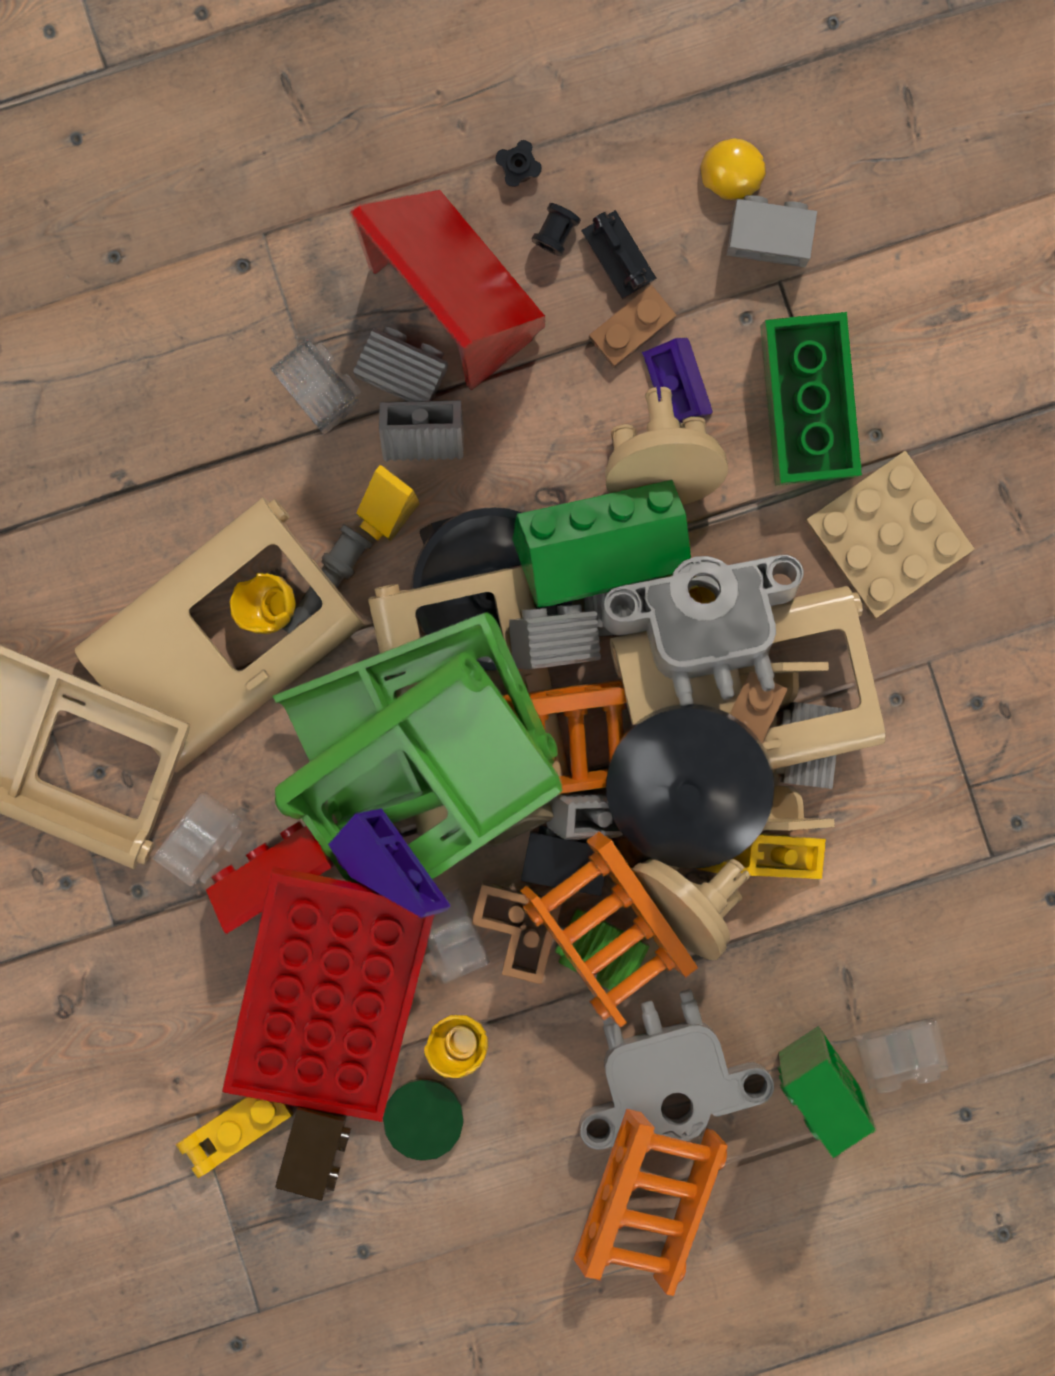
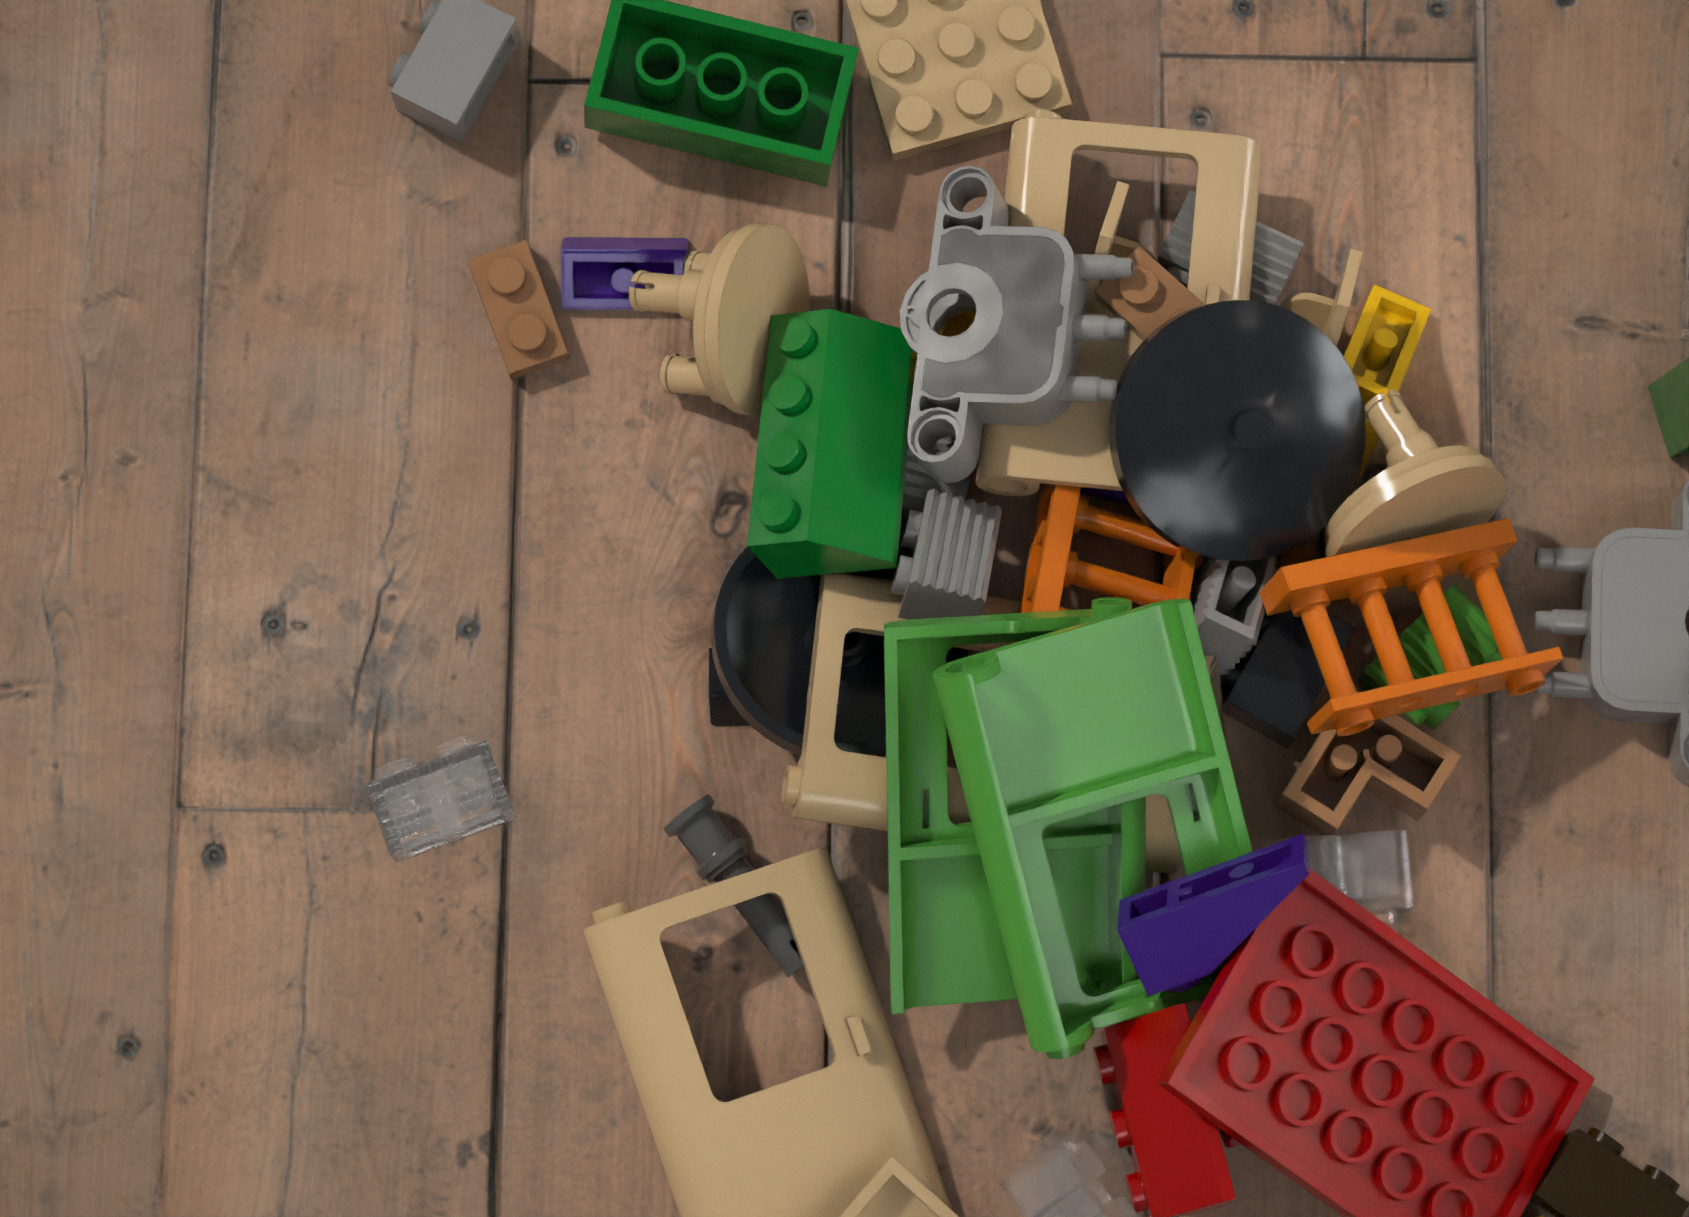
camera: 75 degrees left, 10 degrees down
(262, 604) = (743, 989): yellow hair -> none
(386, 505) = (660, 745): yellow slope -> none
(401, 367) = (459, 662): light grey brick -> none
(421, 430) = (564, 661): light grey brick -> none
(423, 1119) = (1610, 1015): dark green tile -> none
(452, 276) = (351, 507): red windscreen -> none
(456, 1046) = (1514, 922): yellow hair -> none
(516, 175) = (229, 405): black plate -> none
(556, 229) = (335, 369): black bush -> none
(618, 253) = (404, 293): black hinge -> none
(733, 169) = (340, 89): yellow hair -> none

